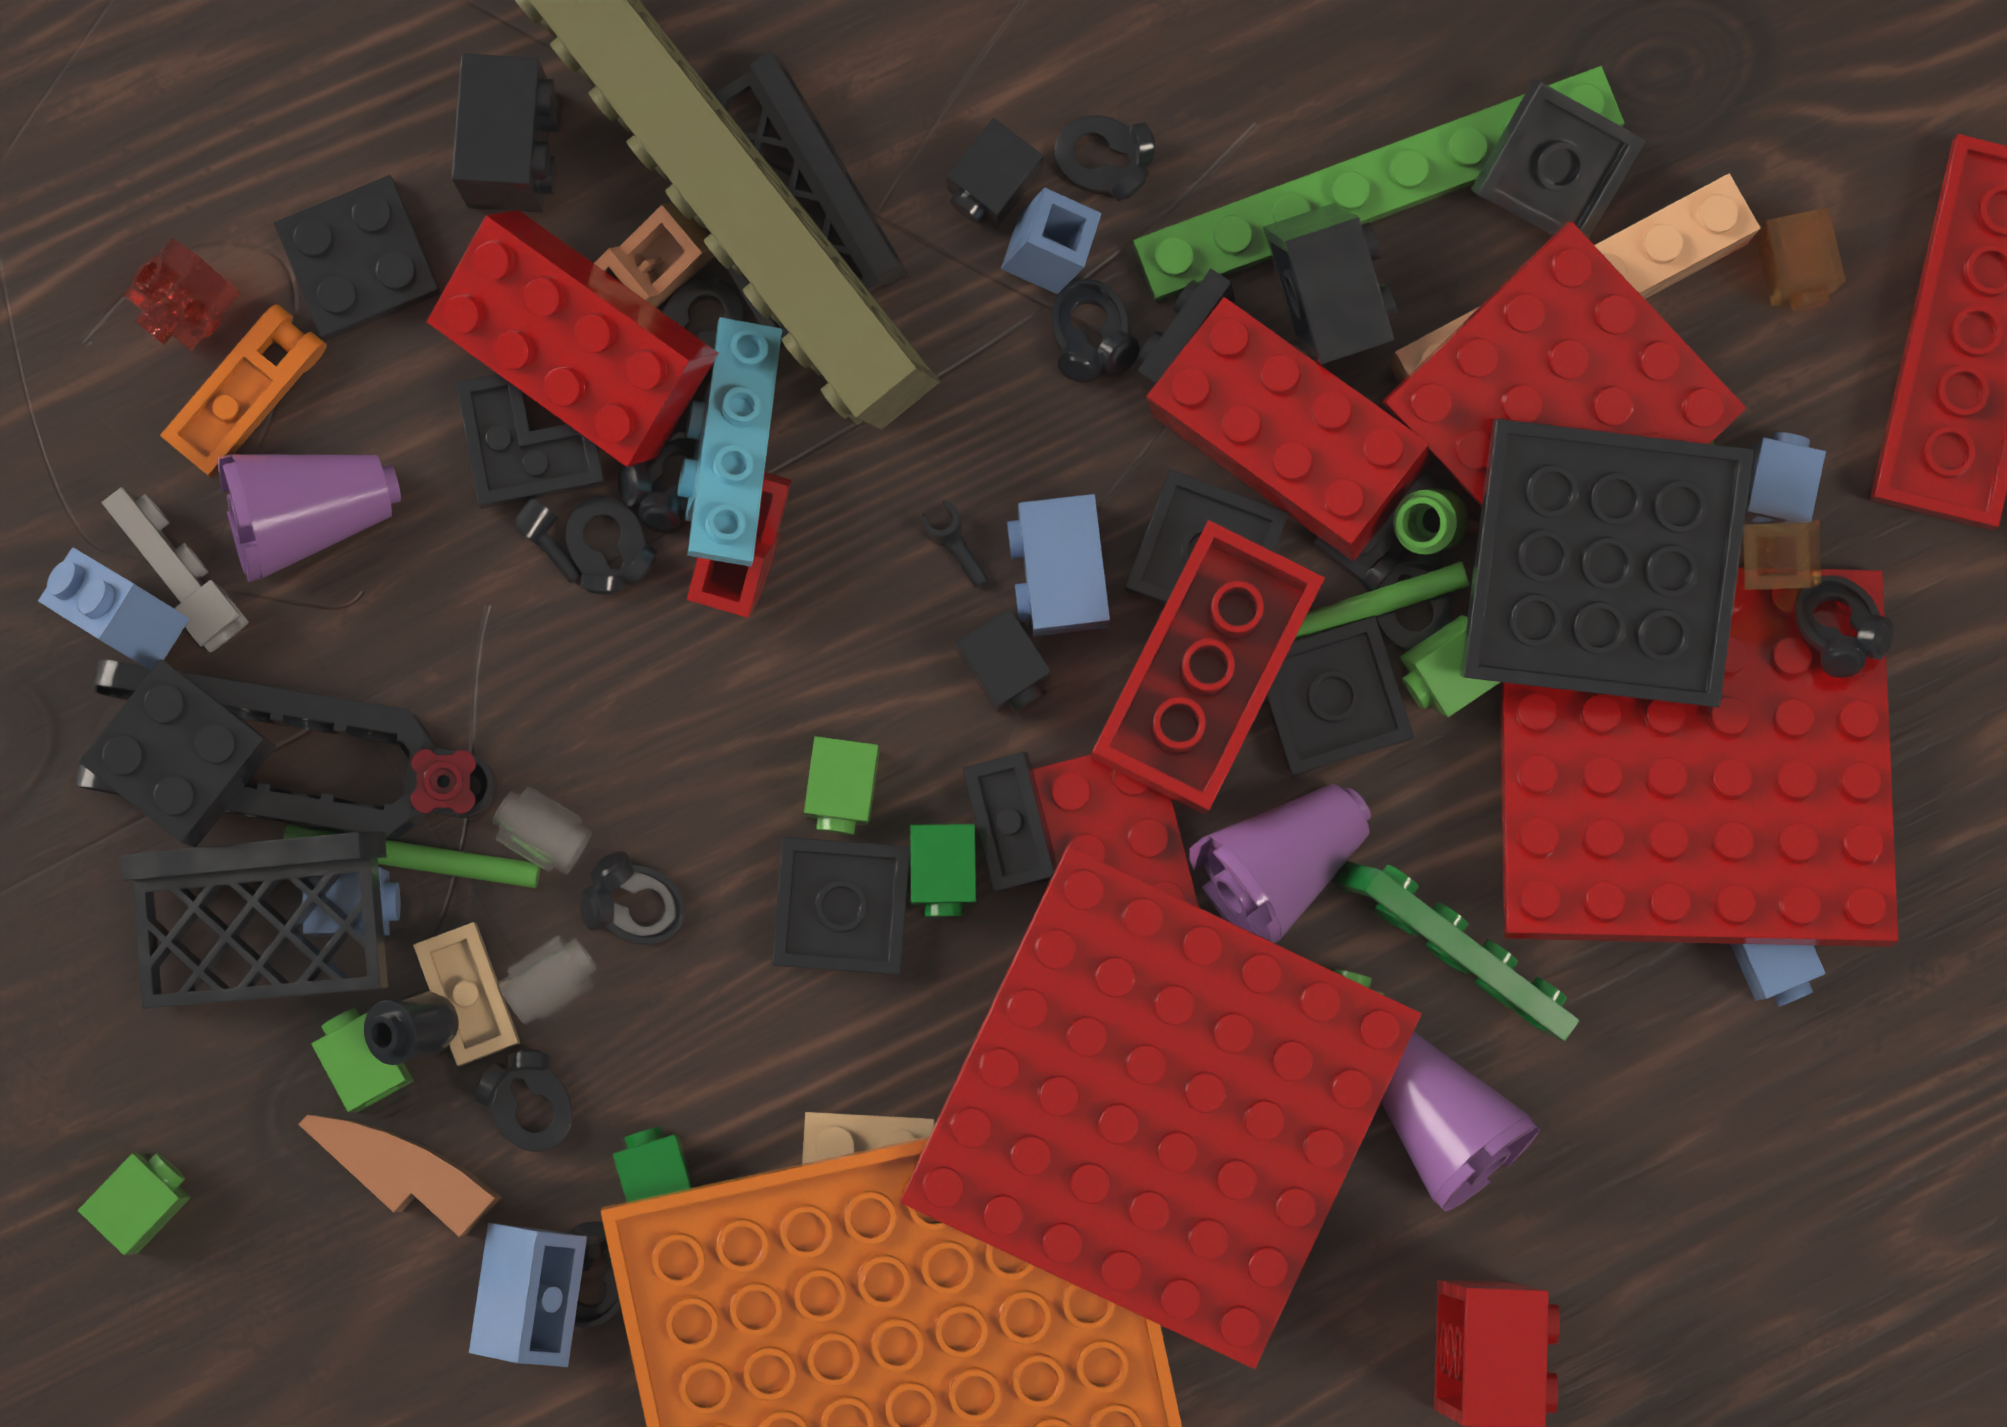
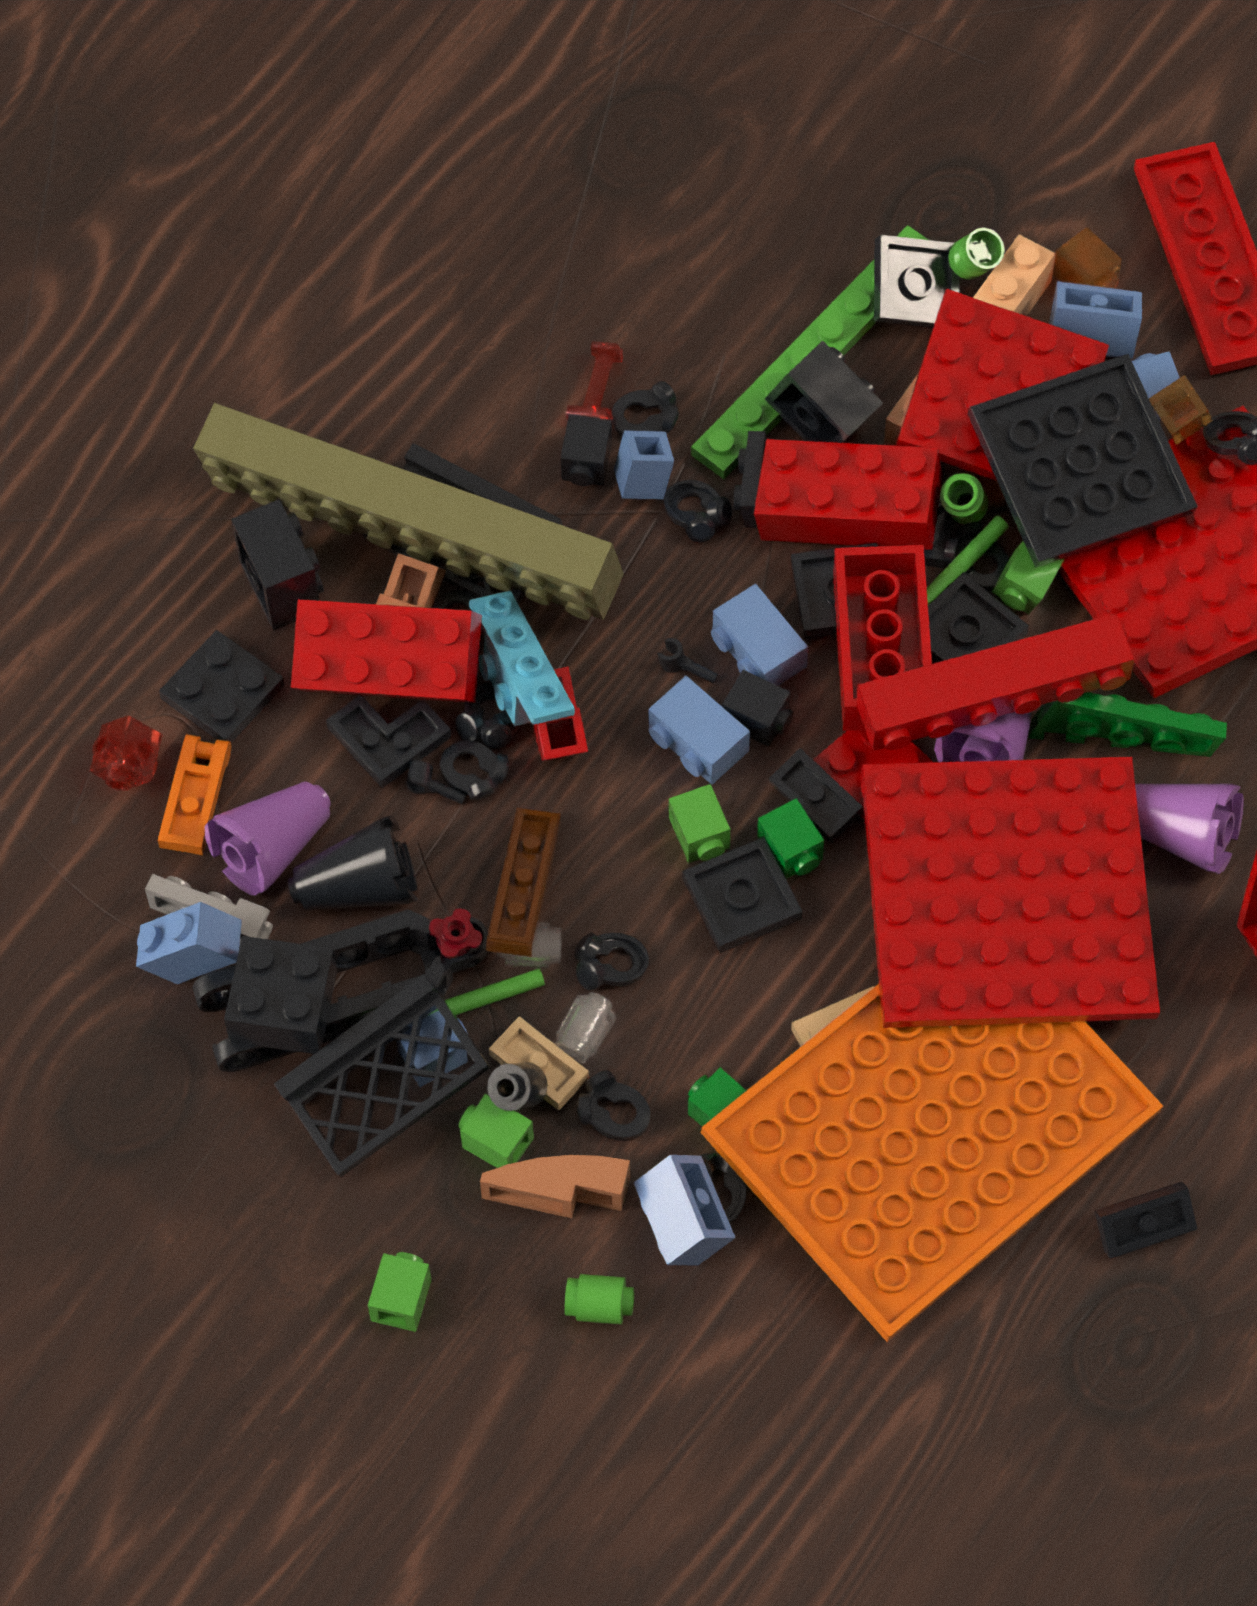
camera: 25 degrees left, 20 degrees down
(367, 1344) = (598, 1299): none -> bright green brick
(383, 620) = (357, 872): none -> black cone
(575, 747) = (523, 882): none -> reddish brown tile
(912, 652) = (698, 730): none -> medium blue brick
(1034, 116) = (605, 355): none -> clear red piece
(1296, 835) = (994, 683): none -> red brick
(1666, 181) = (985, 248): none -> bright green wheel
(1760, 348) = (1099, 314): none -> medium blue brick

